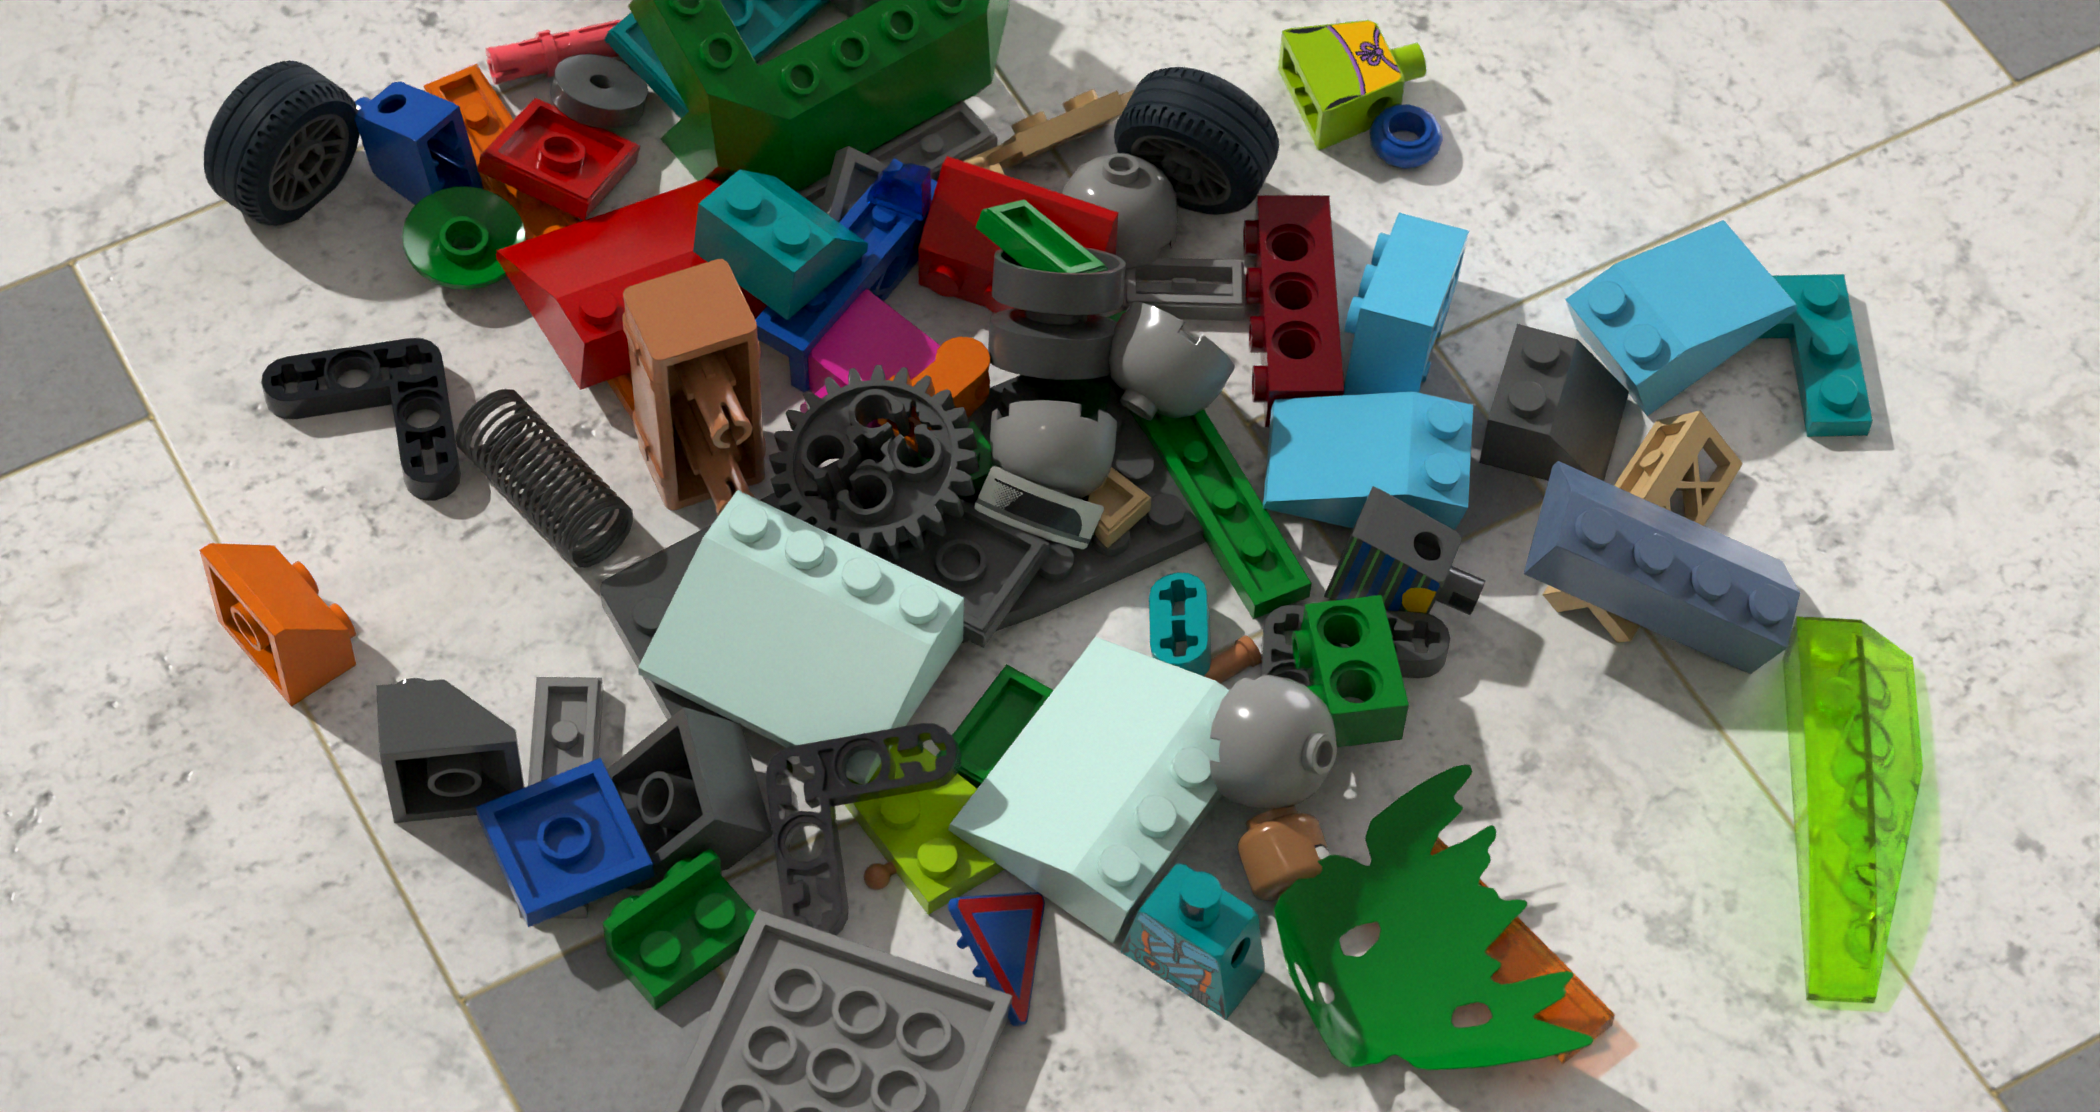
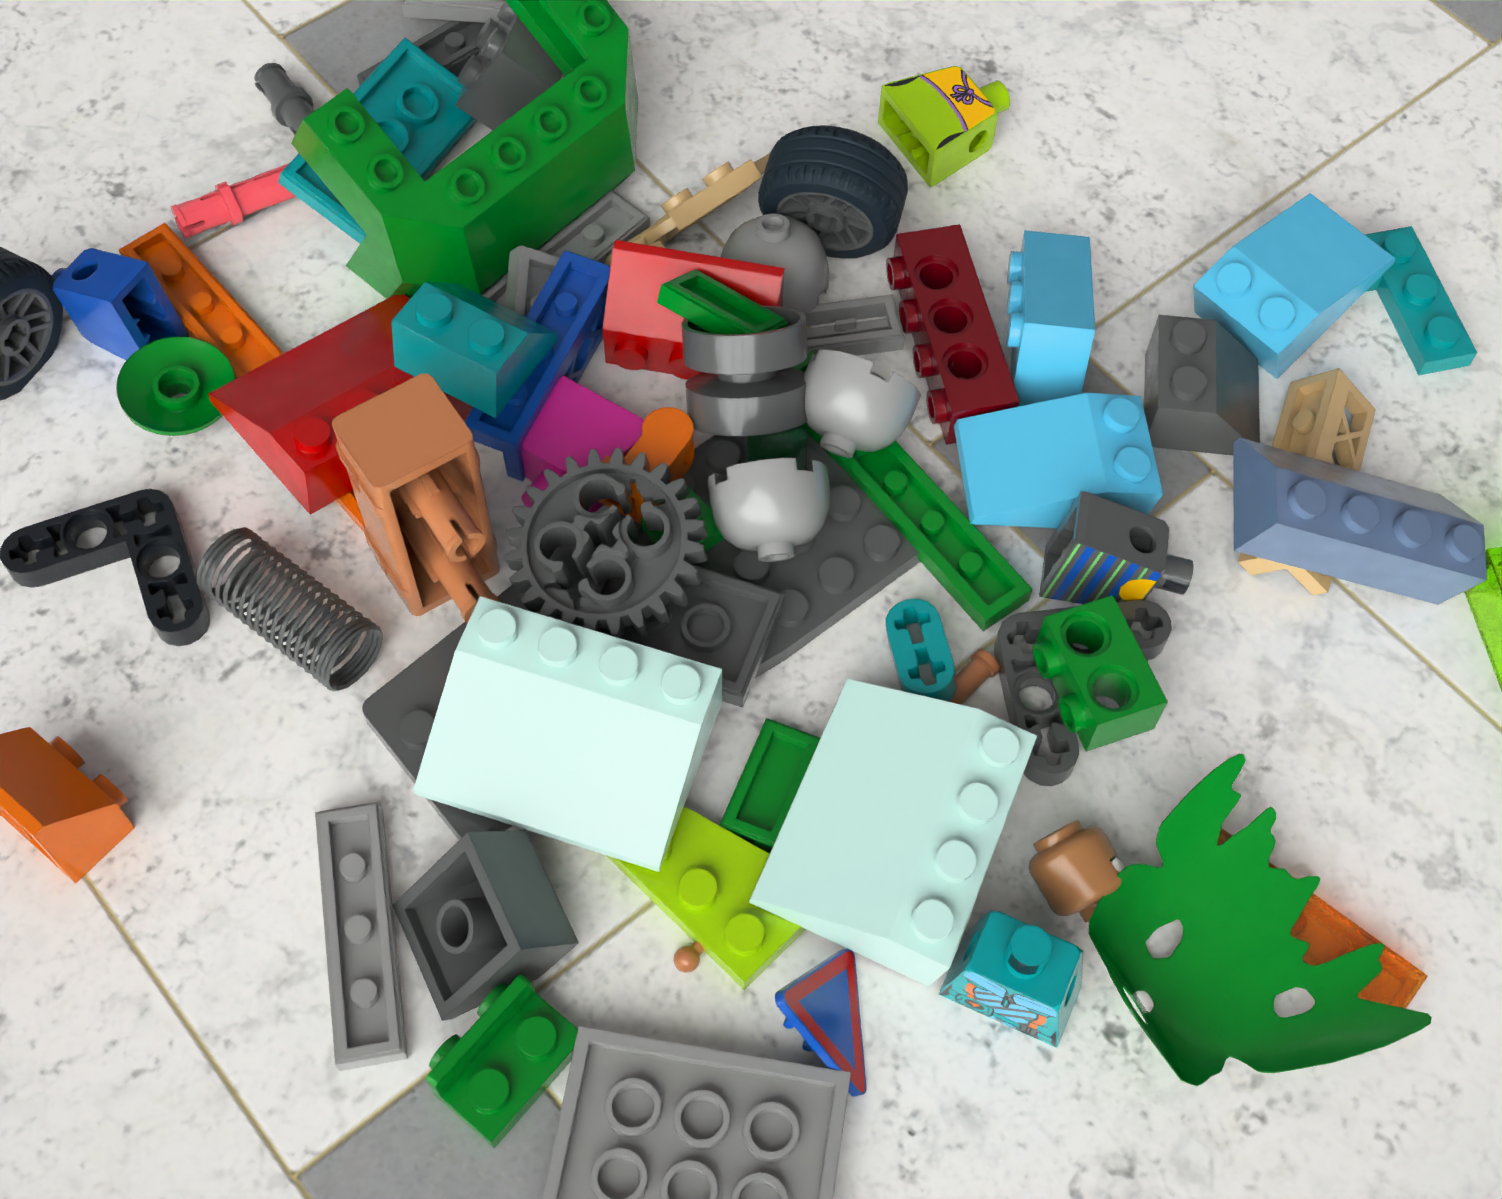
camera: 10 degrees left, 5 degrees up
(442, 751) = (228, 919): dark grey slope -> none
(558, 159) = (253, 298): red tile -> none
(564, 842) = (371, 992): blue plate -> none
(598, 91) = (281, 231): dark grey piece -> none
(833, 788) = (629, 884): black beam -> none
(903, 190) = (580, 278): clear blue tile -> none
(1038, 509) = (768, 563): sticker -> none
(1122, 504) = (837, 547): tan tile -> none
(1272, 743) = (1053, 765): light grey cylinder -> none
(1405, 153) = (1004, 178): blue piece -> none

